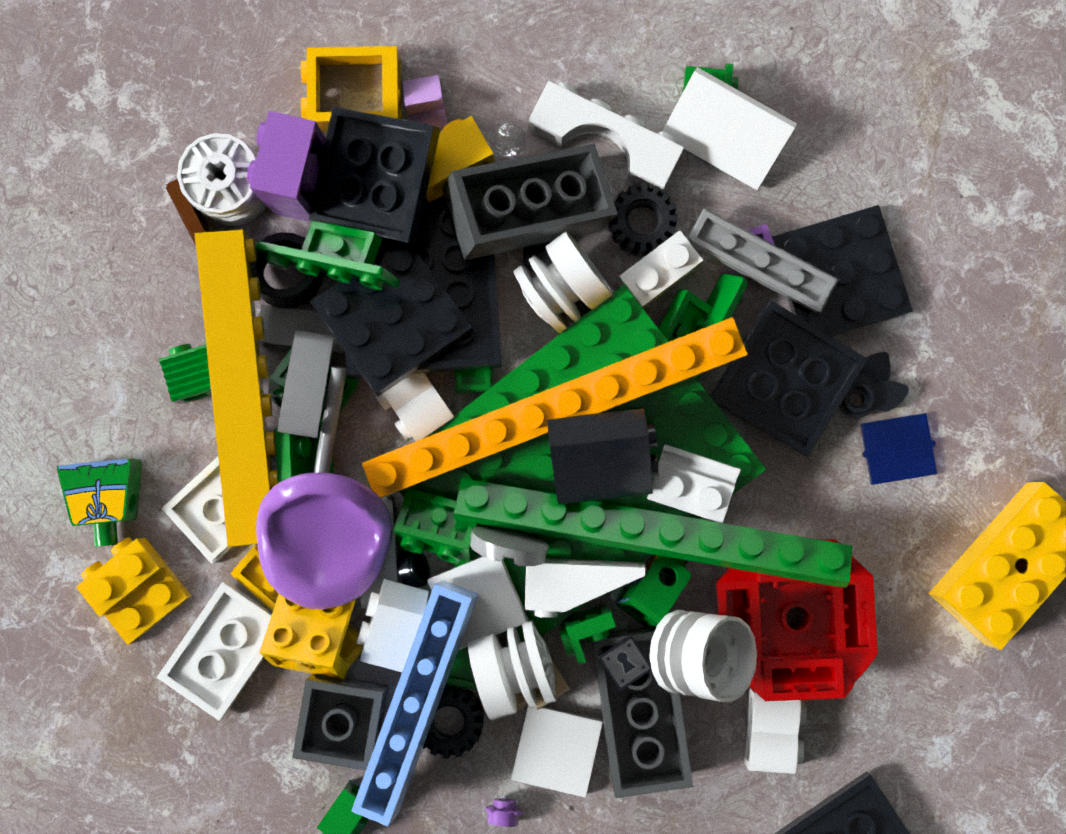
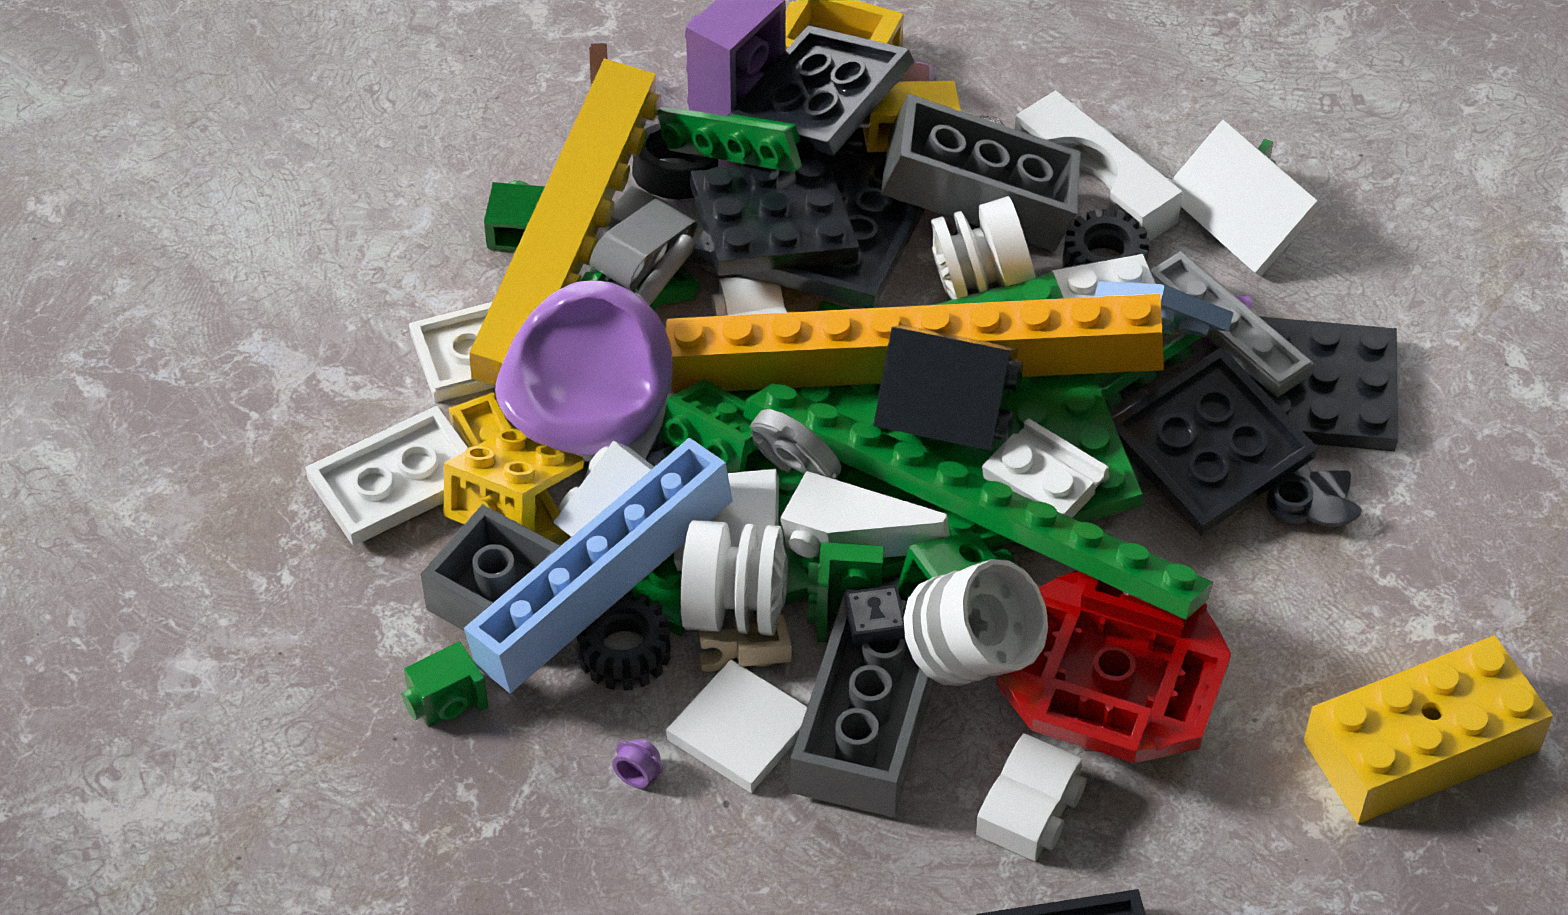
camera: 20 degrees right, 35 degrees down
(101, 495) = (354, 284): torso -> none
(132, 588) = (329, 384): yellow plate -> none
(224, 201) = (654, 41): white wheel -> none
(719, 288) = (1177, 307): none -> light blue plate
(898, 449) = (1326, 576): clear blue piece -> none

